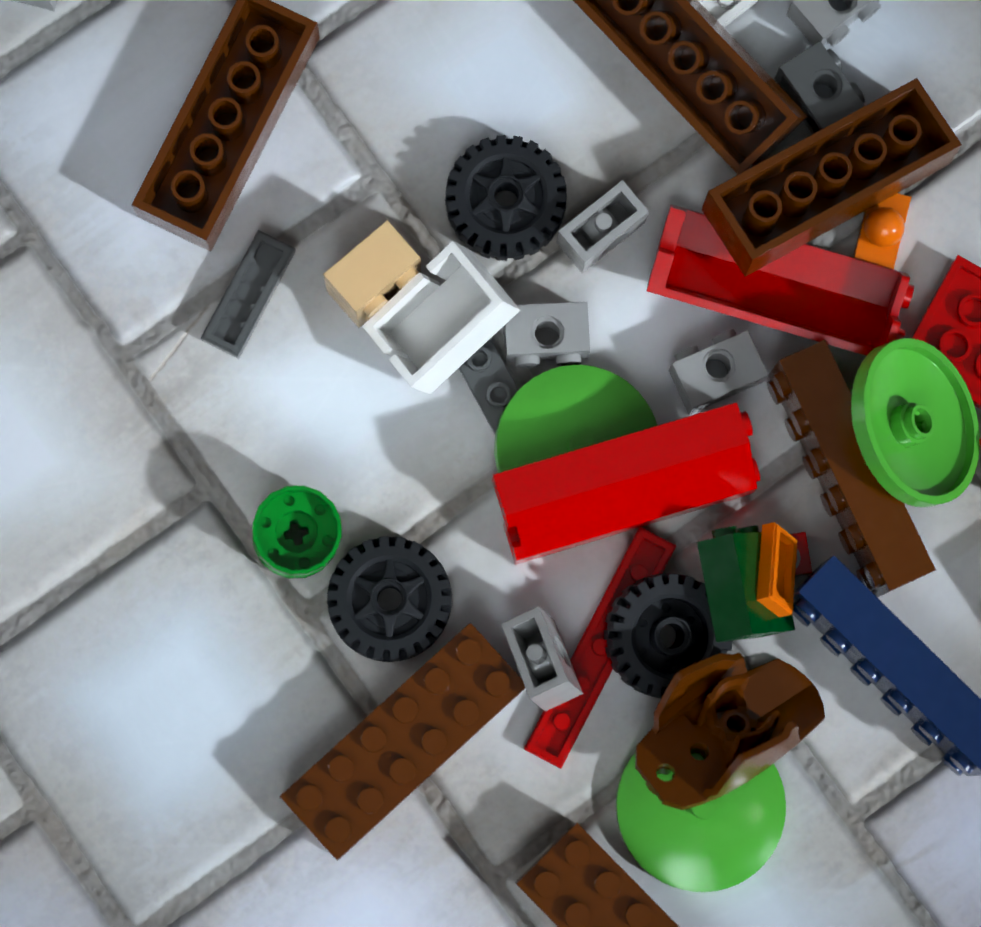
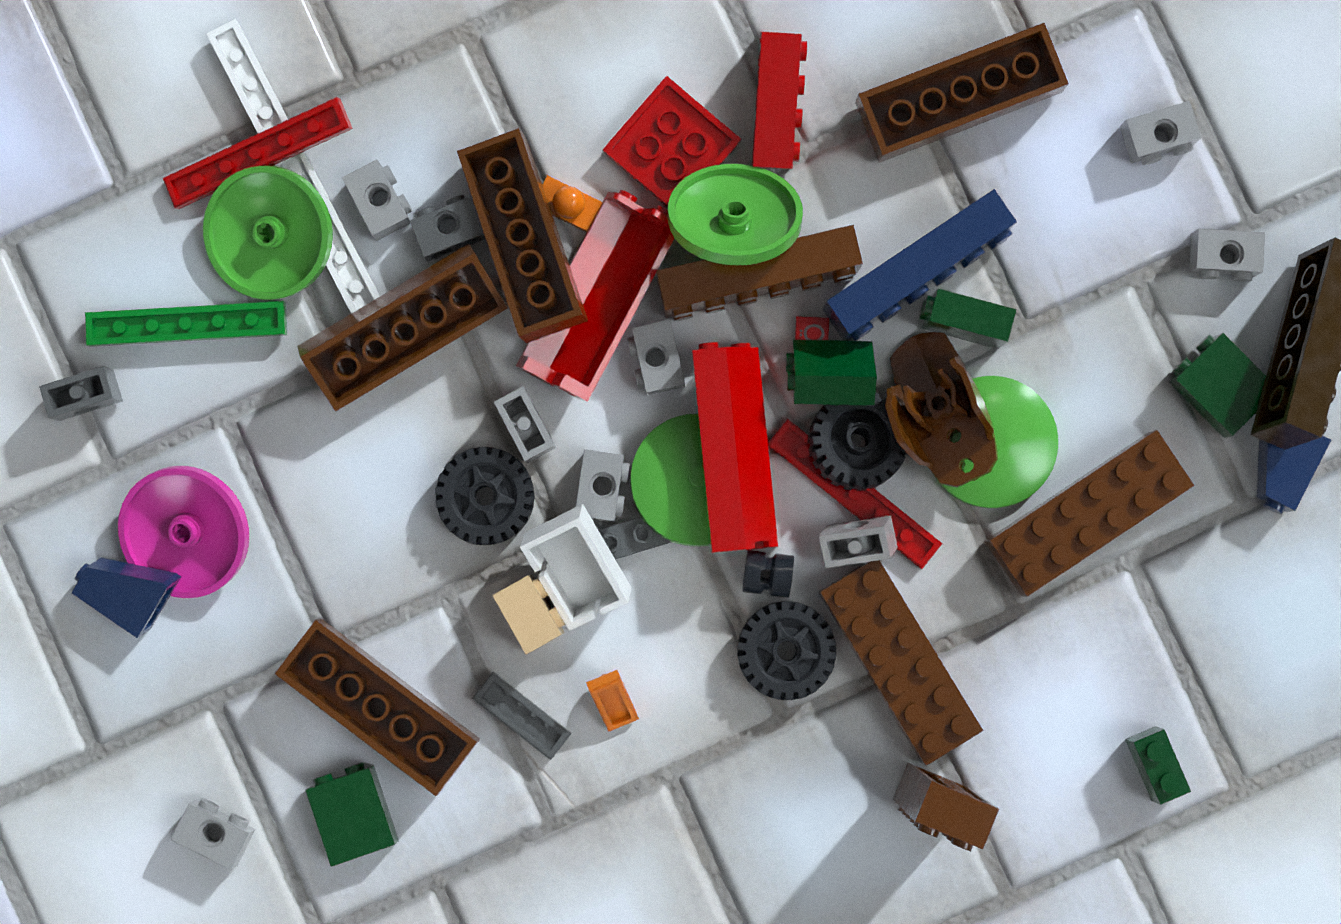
camera: 70 degrees left, 5 degrees up
(92, 115) = (351, 814): none -> dark green brick
(230, 817) = (944, 807): none -> reddish brown brick
(287, 396) = (612, 700): none -> orange tile
(310, 512) = (736, 728): green wheel -> none
(479, 572) = (780, 573): none -> black wheel
(777, 569) = (825, 345): orange tile -> none
(849, 740) = (967, 318): none -> dark green brick

